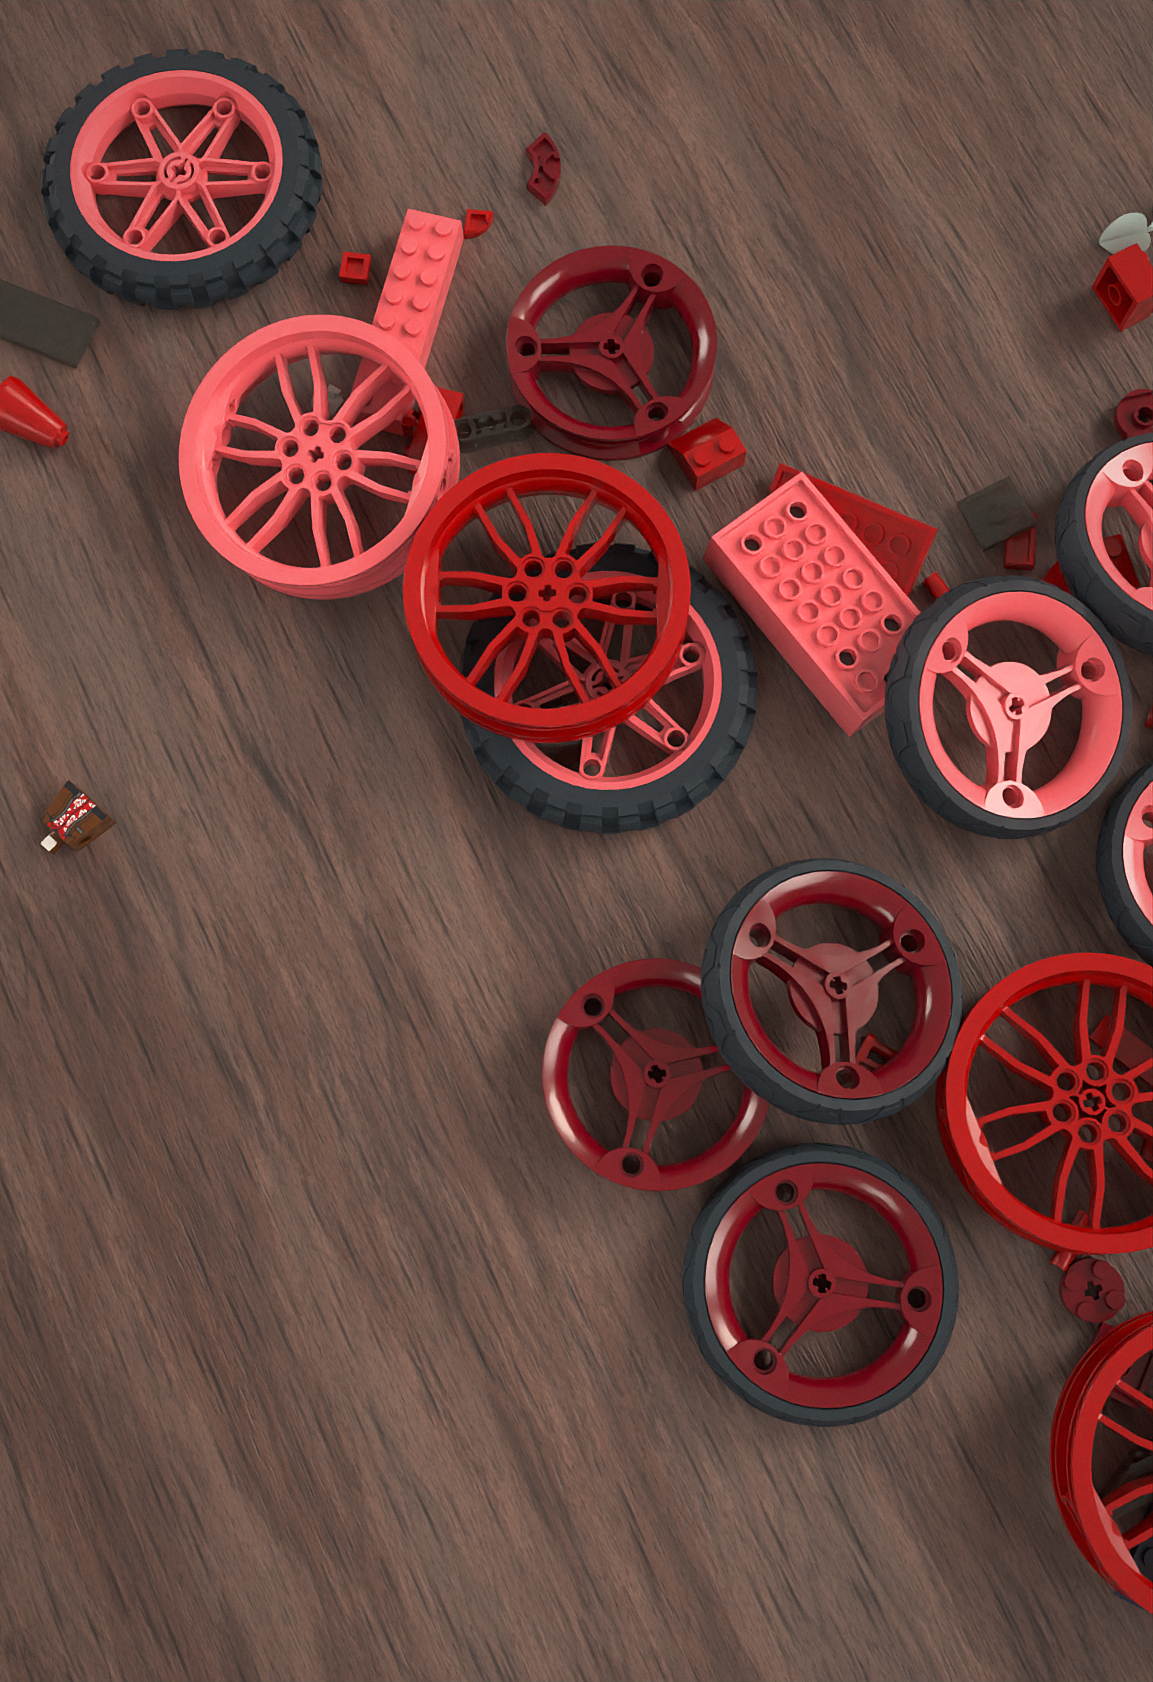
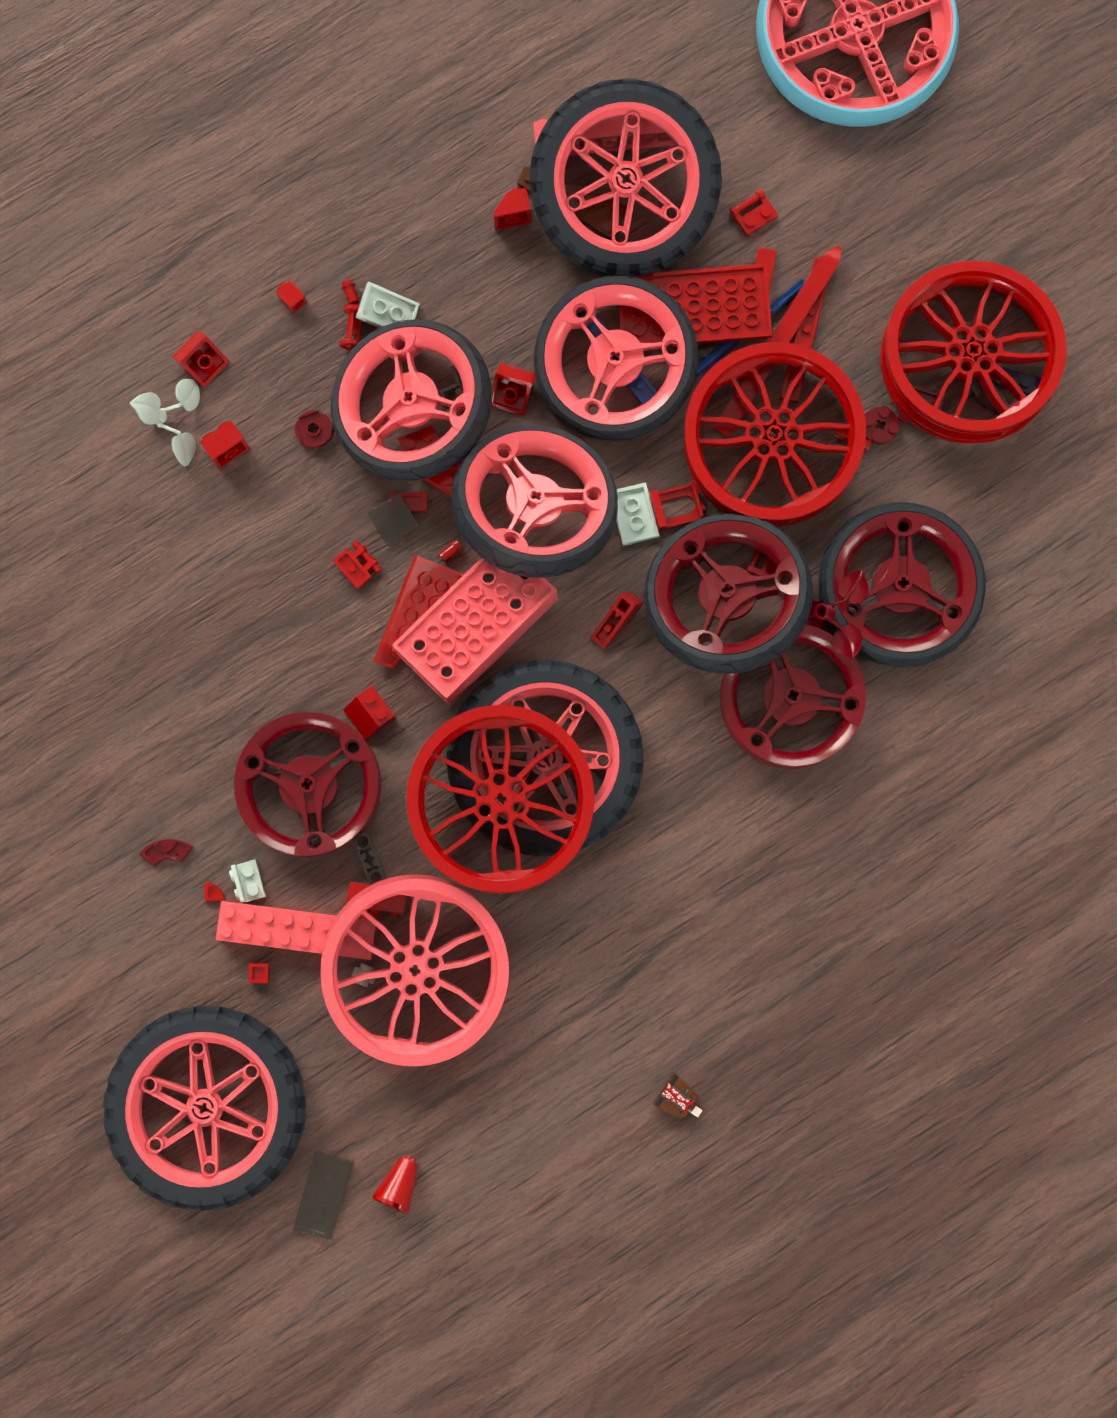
camera: 100 degrees left, 5 degrees up
(485, 265) = (247, 881): none -> light aqua bracket
(737, 1172) = (849, 639): none -> dark red plant
(811, 822) = (617, 618): none -> red slope
(925, 450) = (351, 567): none -> red plate
(974, 872) = (635, 515): none -> light aqua tile
(1006, 956) = (690, 490): none -> red panel

